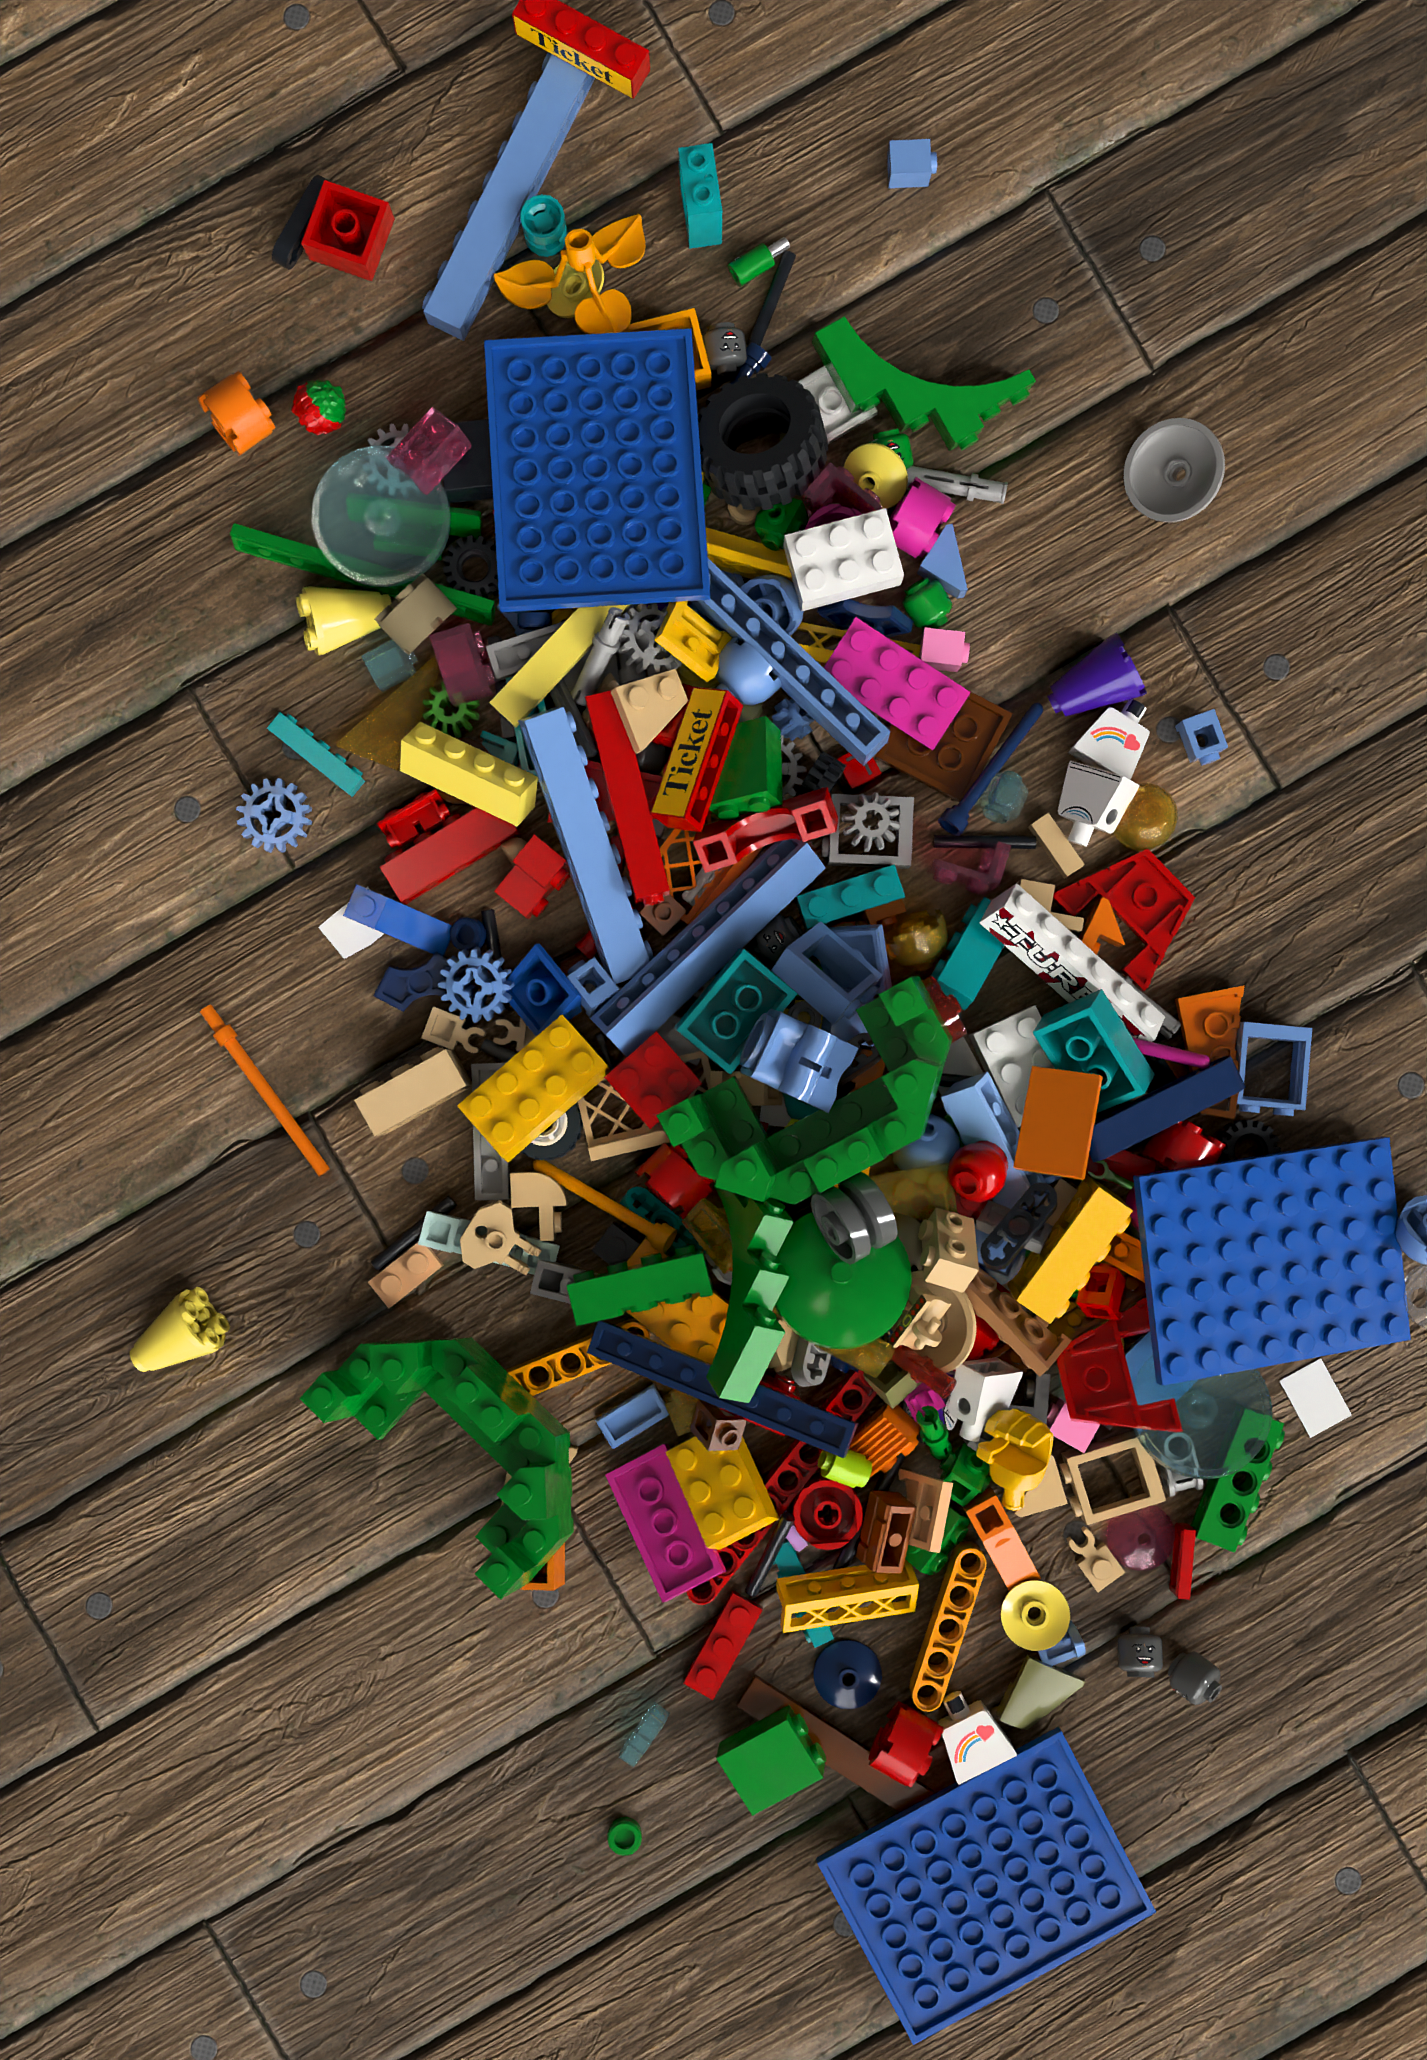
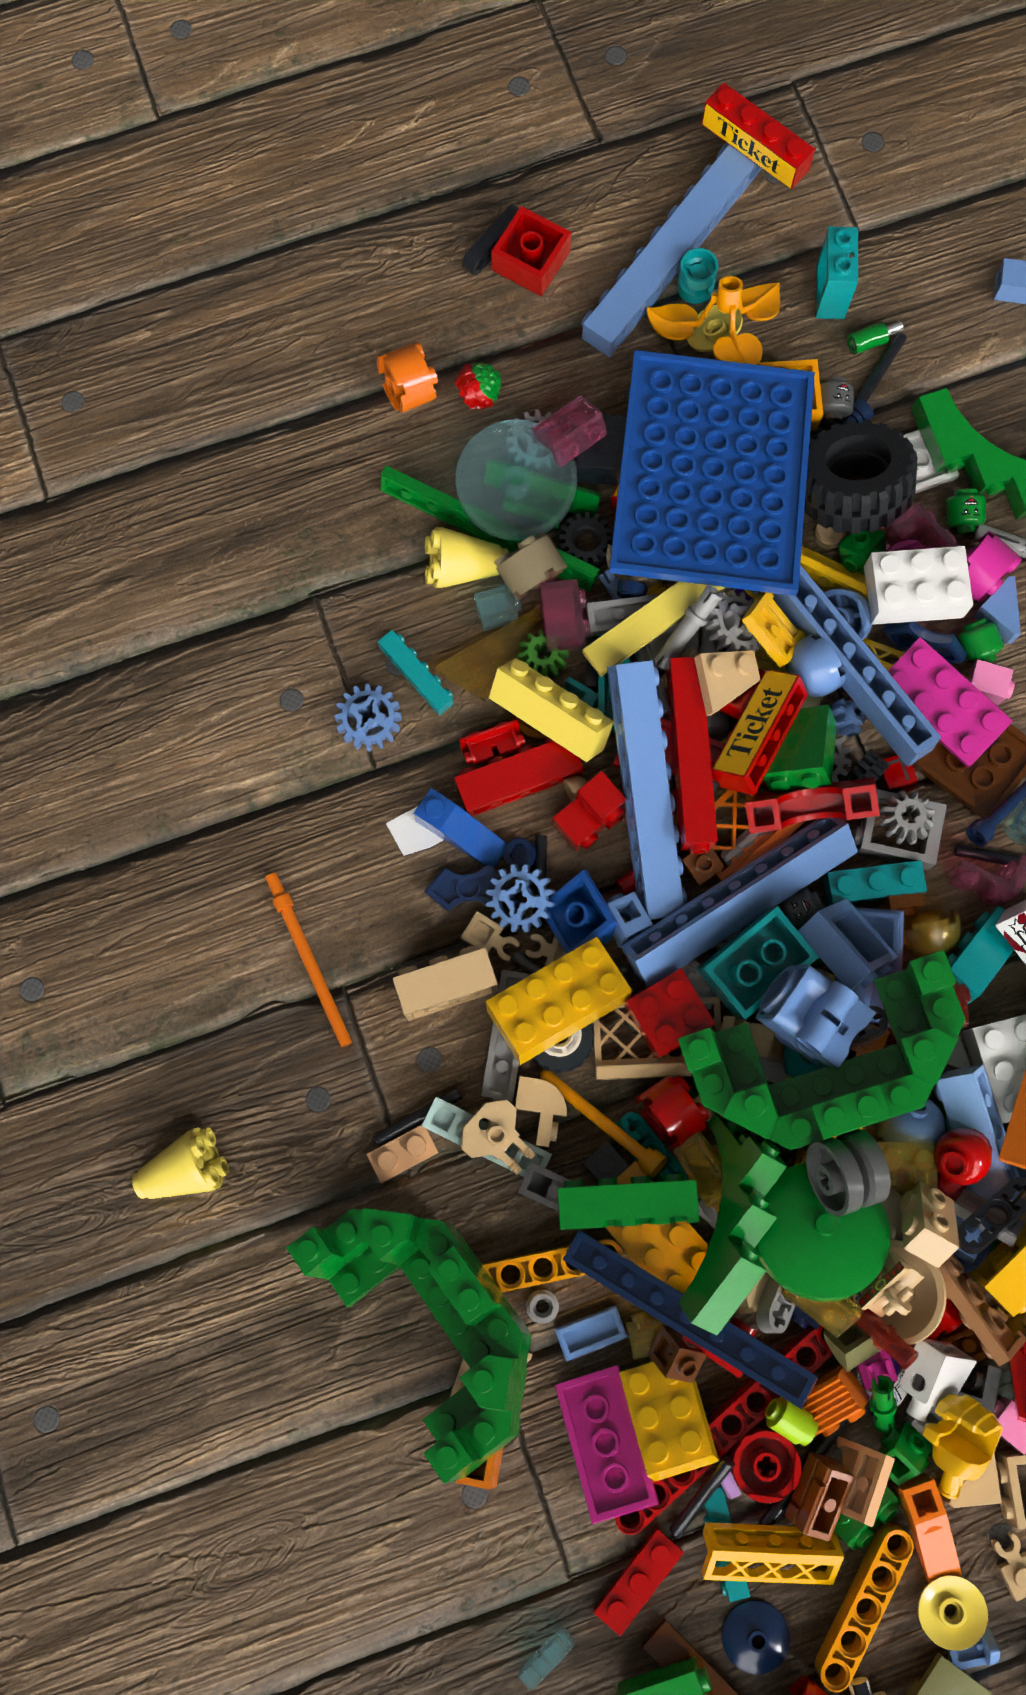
camera: 10 degrees right, 10 degrees down
(578, 1410) = (537, 1316): none -> light grey plate
(883, 467) = (961, 516): light yellow dish -> none

